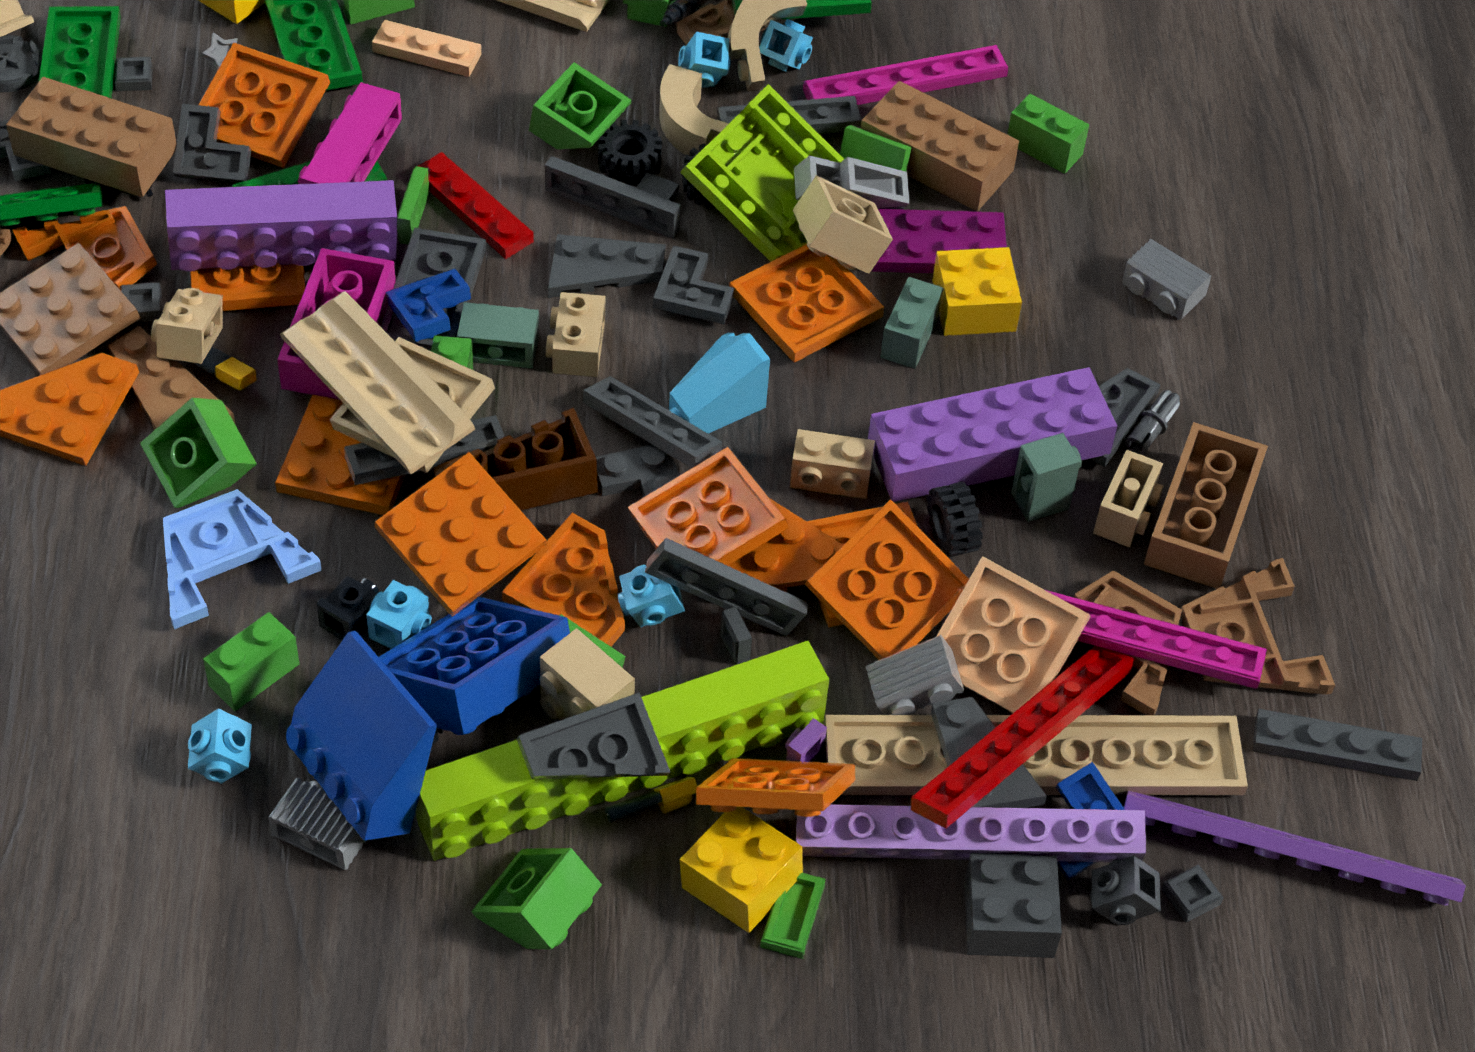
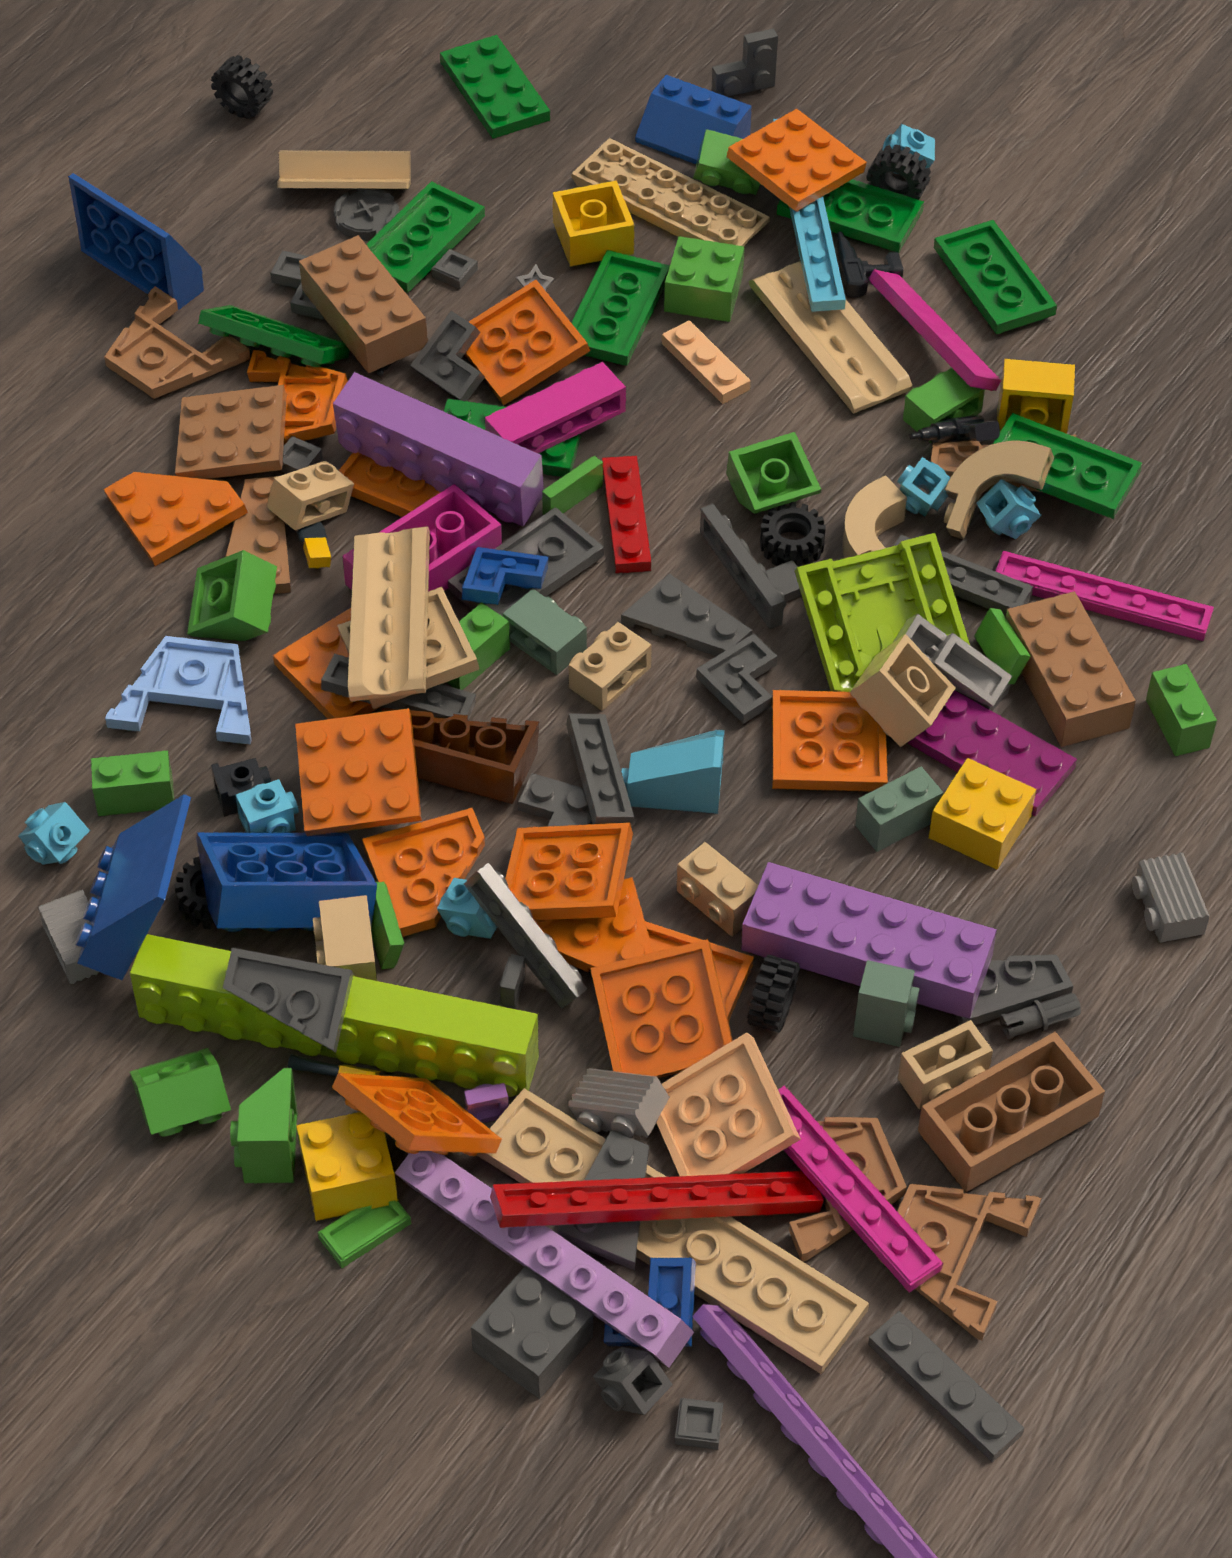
camera: 40 degrees right, 0 degrees up
(662, 881) = (267, 1132): none -> bright green slope

